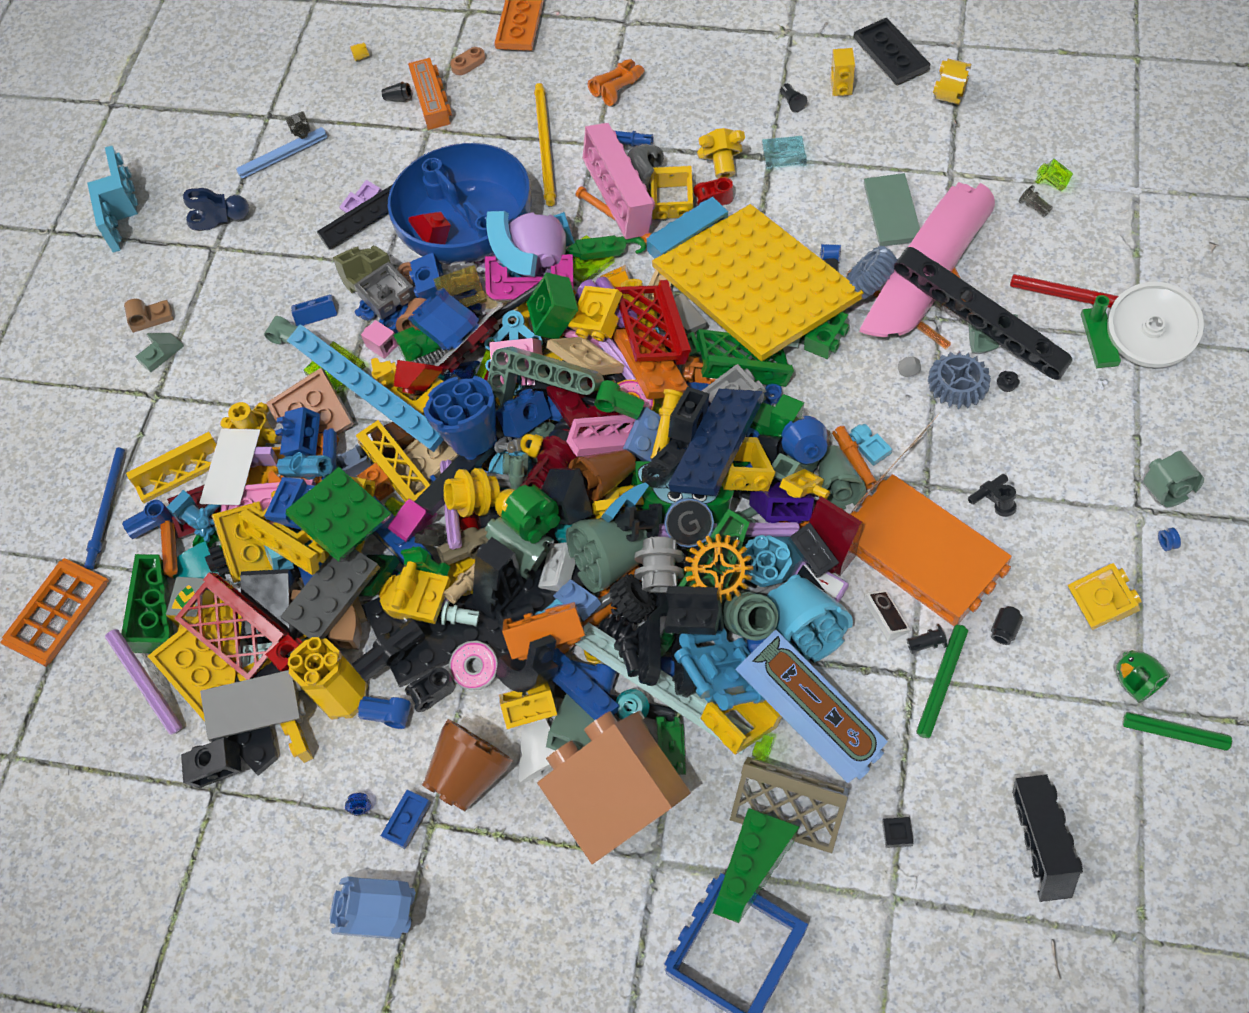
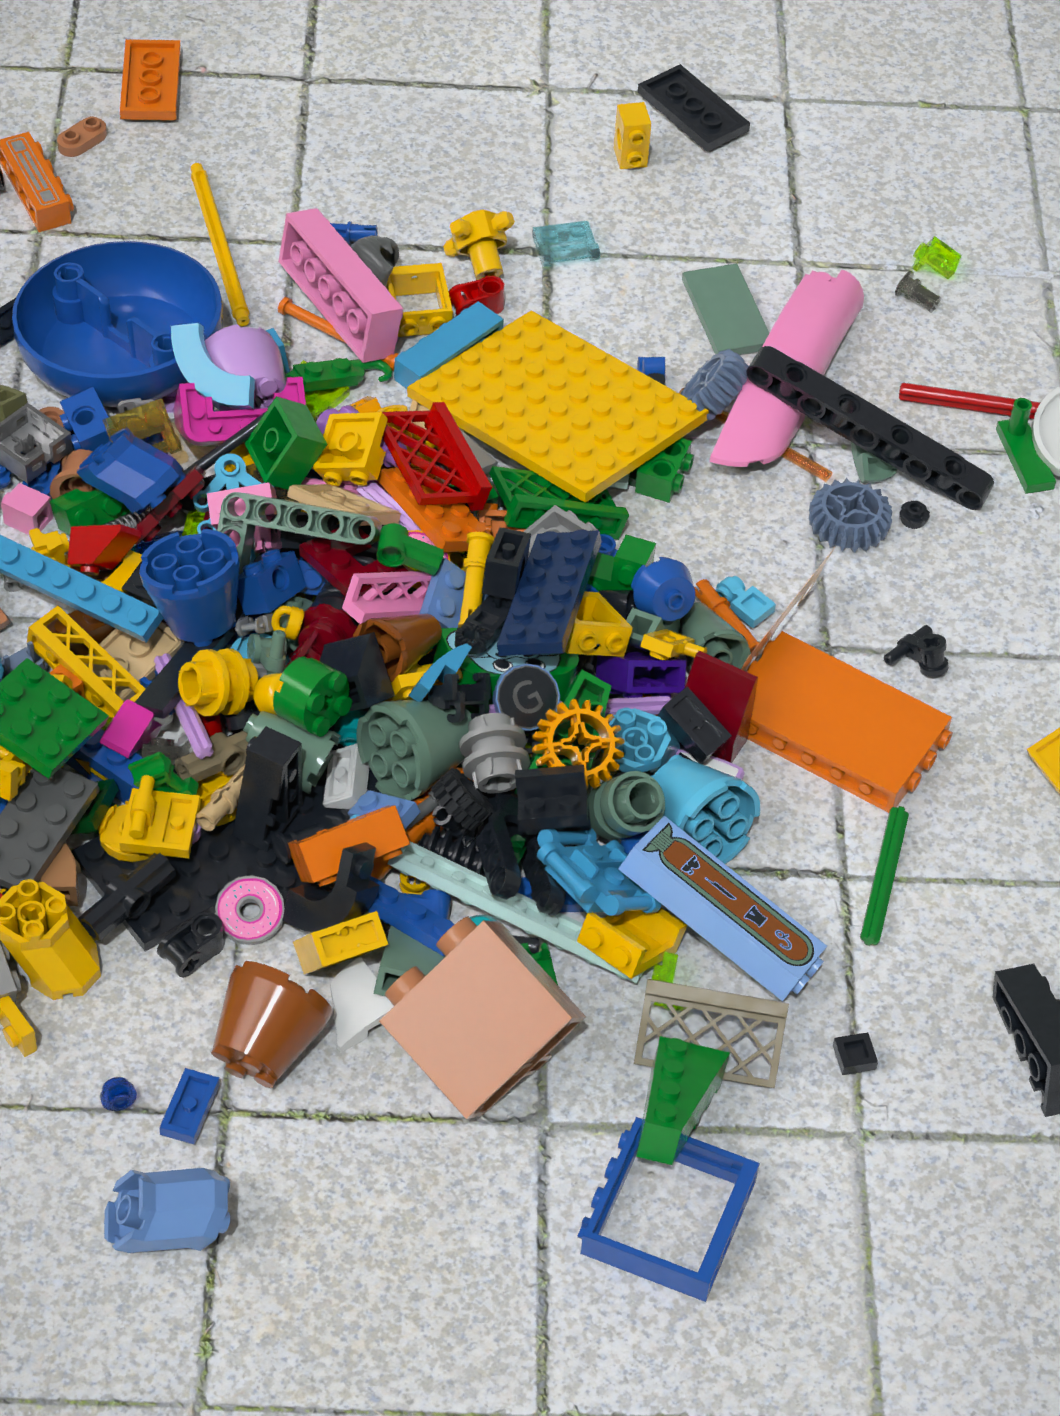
camera: 20 degrees left, 10 degrees down
(390, 712) = (143, 978): blue piece -> none
(431, 227) = (79, 353): red slope -> none
(459, 615) = (219, 846): light aqua pin -> none
(466, 336) = (186, 469): white sticker -> none
(607, 87) = (302, 168): orange piece -> none
(628, 651) = (468, 865): black pin -> none
(794, 98) = (570, 174): black pin -> none
(886, 614) = (798, 804): slope -> none
(909, 366) = (782, 503): light grey tile -> none
(927, 640) = (858, 828): black pin -> none
(952, 81) = (785, 143): yellow brick -> none
(1006, 625) = (956, 802): black brick -> none

